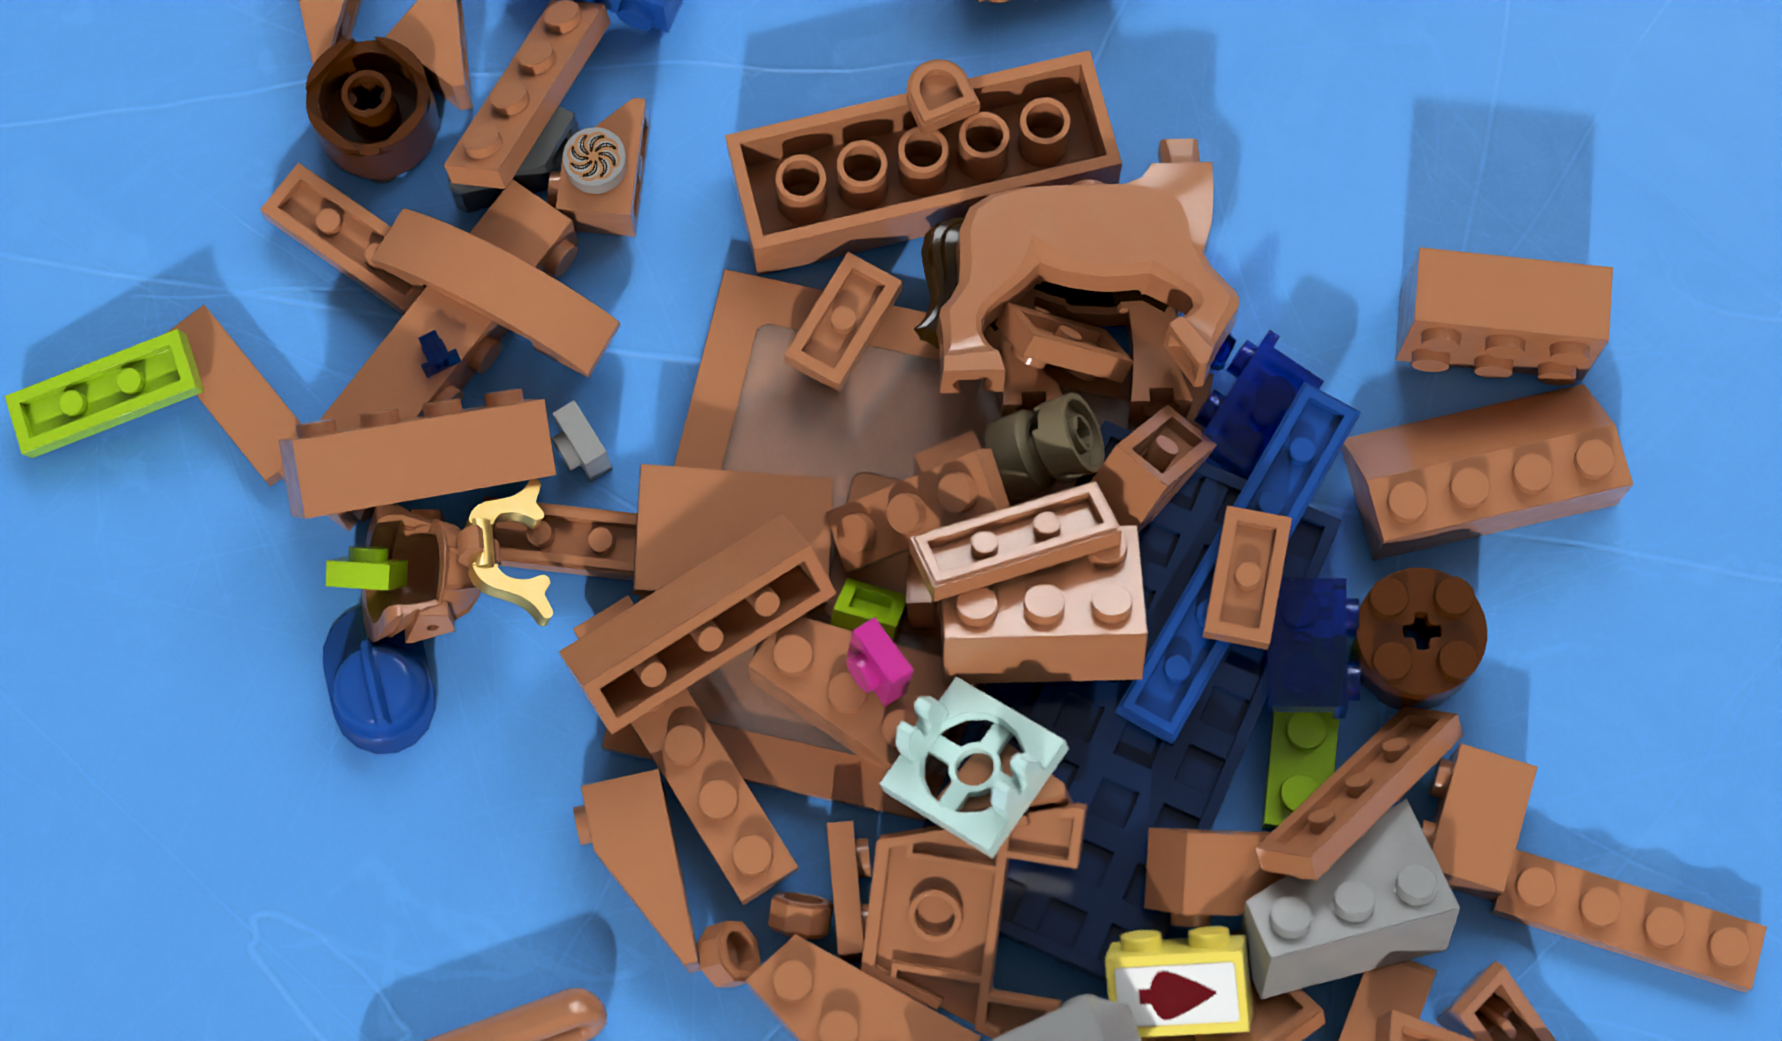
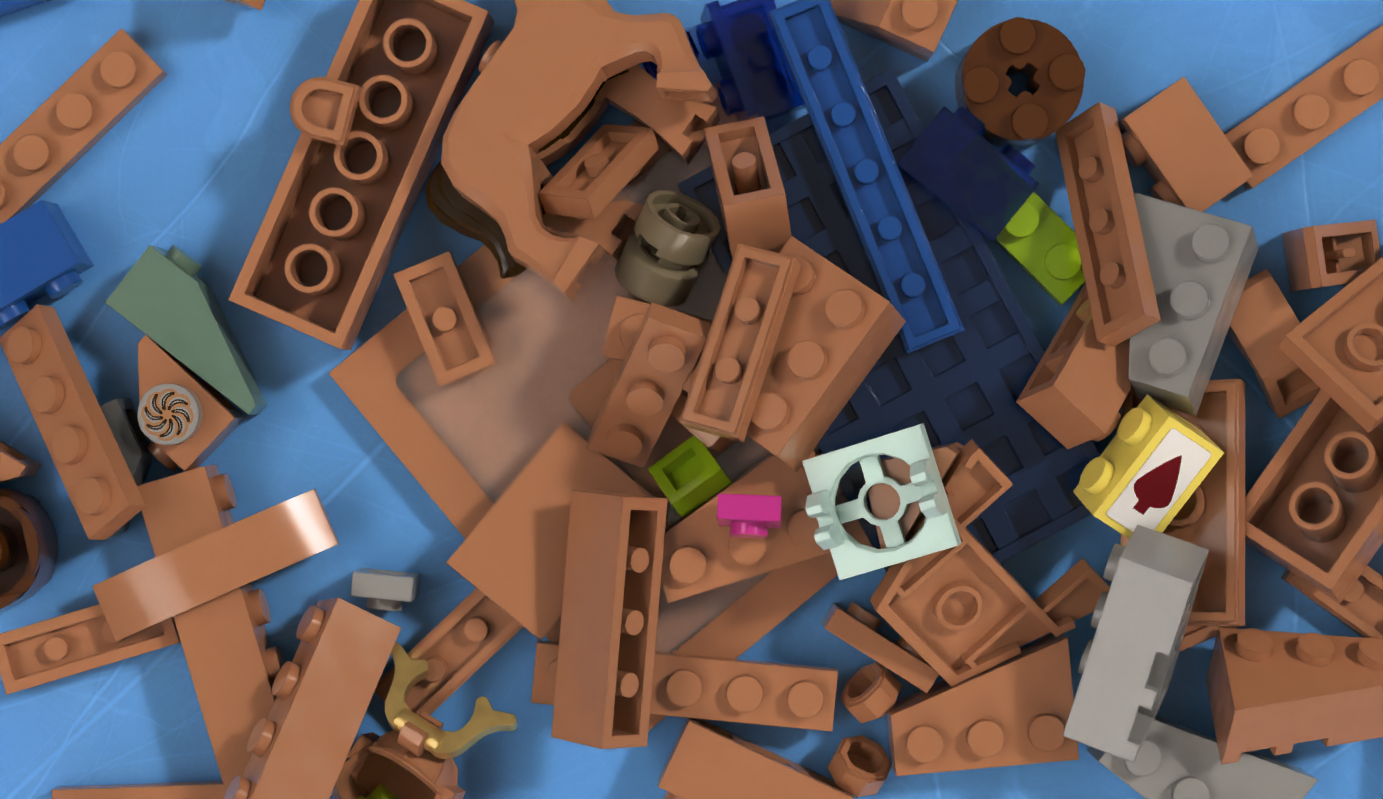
camera: 55 degrees left, 15 degrees up
(436, 354) = (236, 650): clear blue piece -> none
(681, 129) = (184, 318): none -> sand green slope
(1247, 577) = (890, 182): nougat plate -> none

